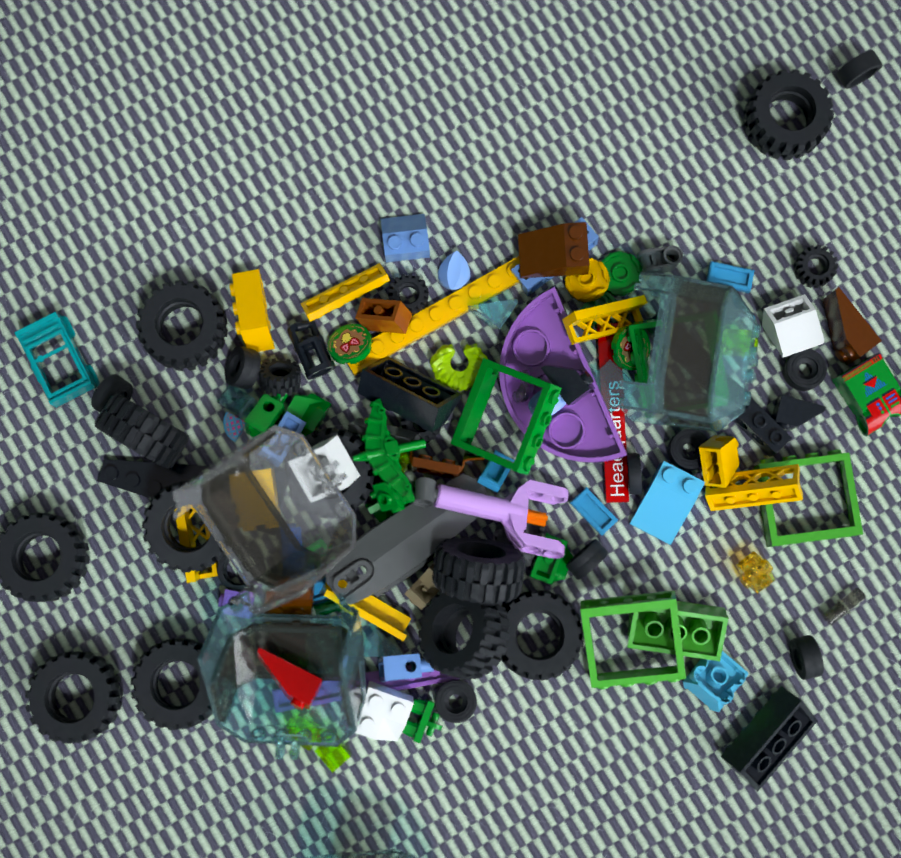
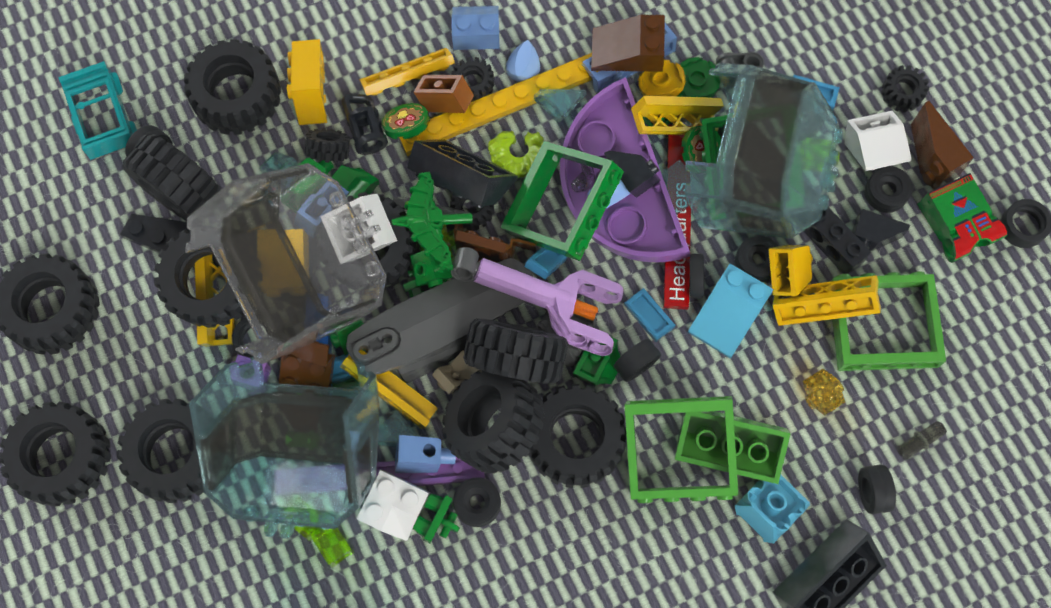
camera: 10 degrees right, 10 degrees down
(242, 367) = (289, 132): black tyre -> none
(295, 683) = (300, 459): red slope -> none

